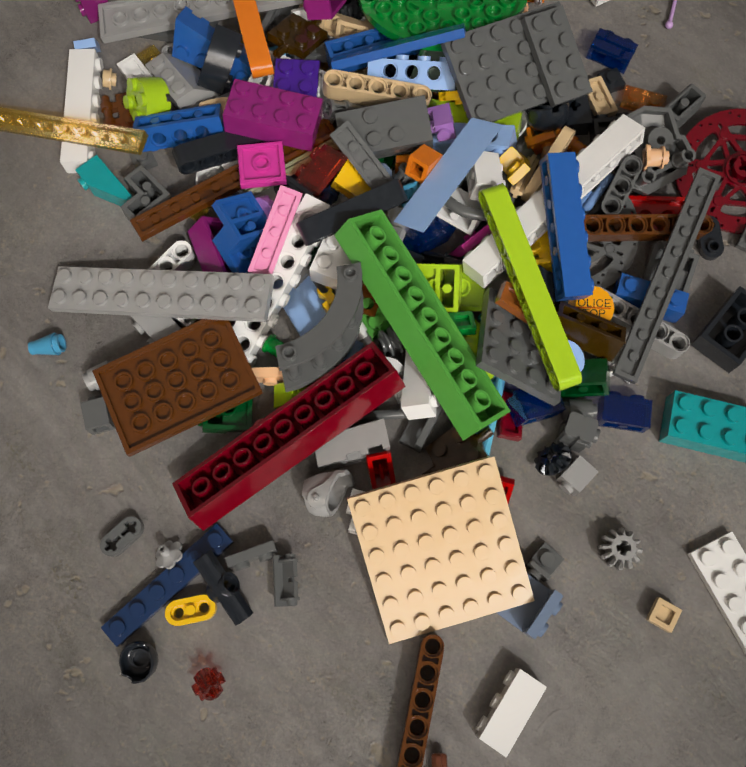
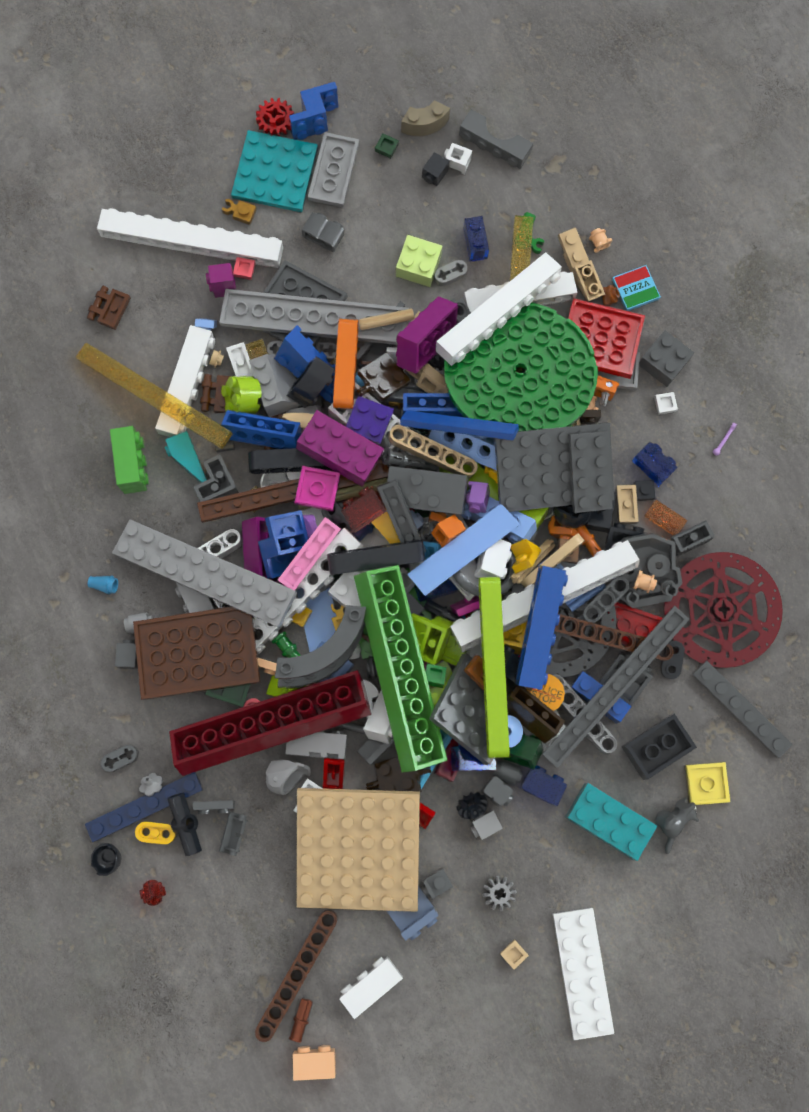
camera: 15 degrees right, 5 degrees up
(39, 201) = (129, 460): none -> bright green brick
(287, 314) = (301, 618): none -> yellow tile

